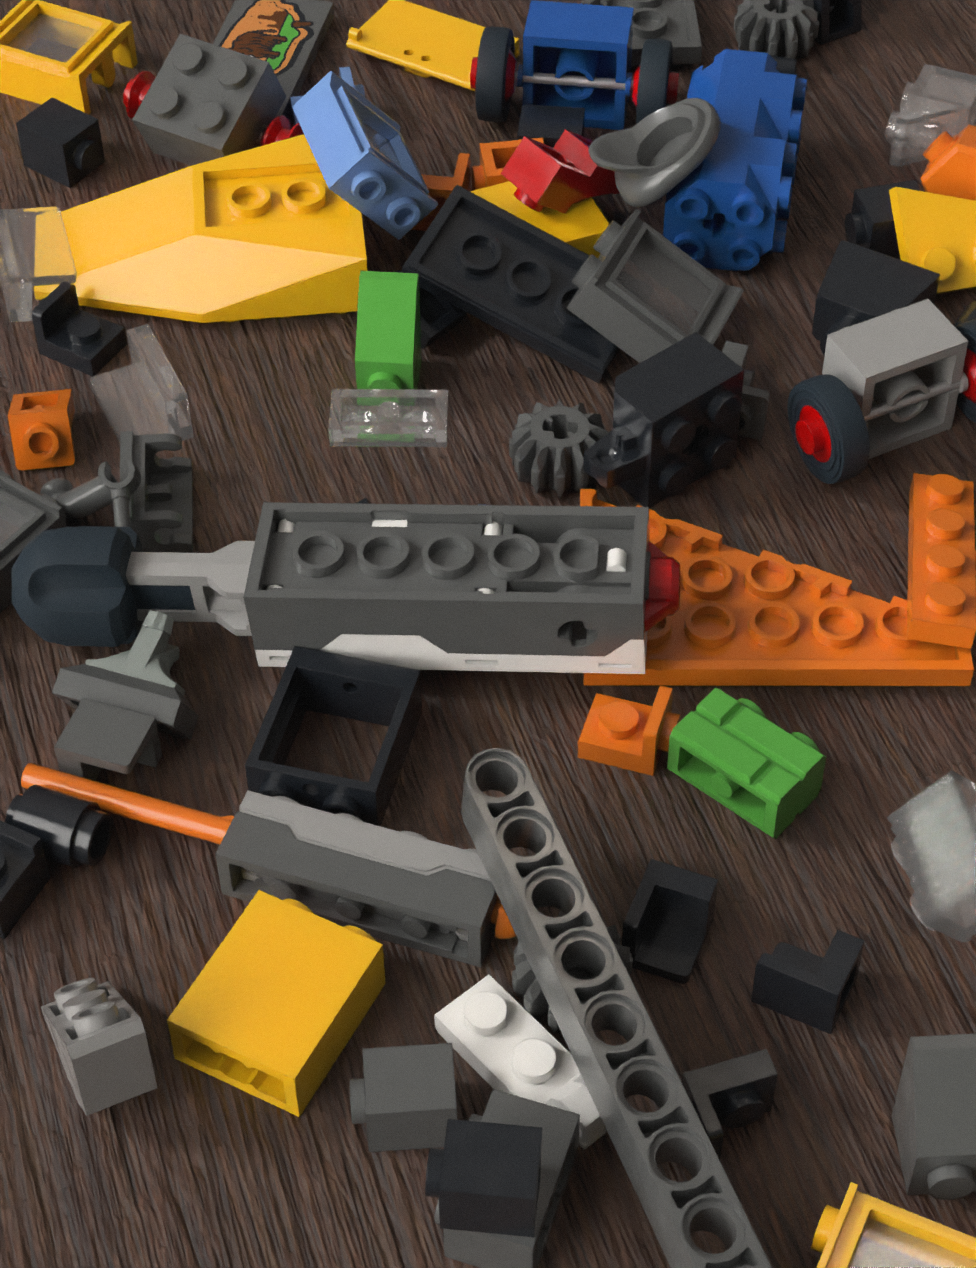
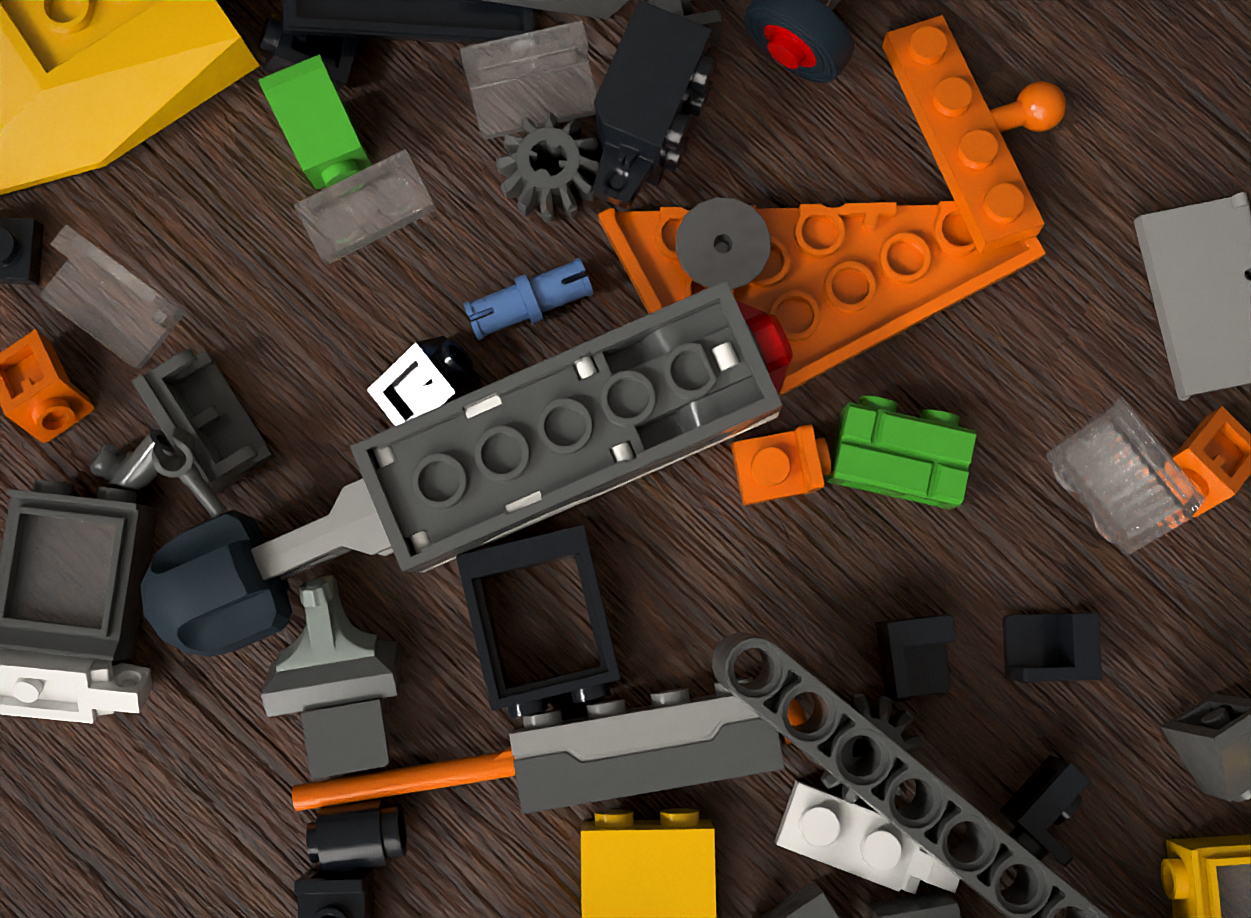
camera: 30 degrees left, 35 degrees up
(575, 376) = (530, 78): none -> clear panel
(684, 534) = (723, 242): none -> flat silver piece

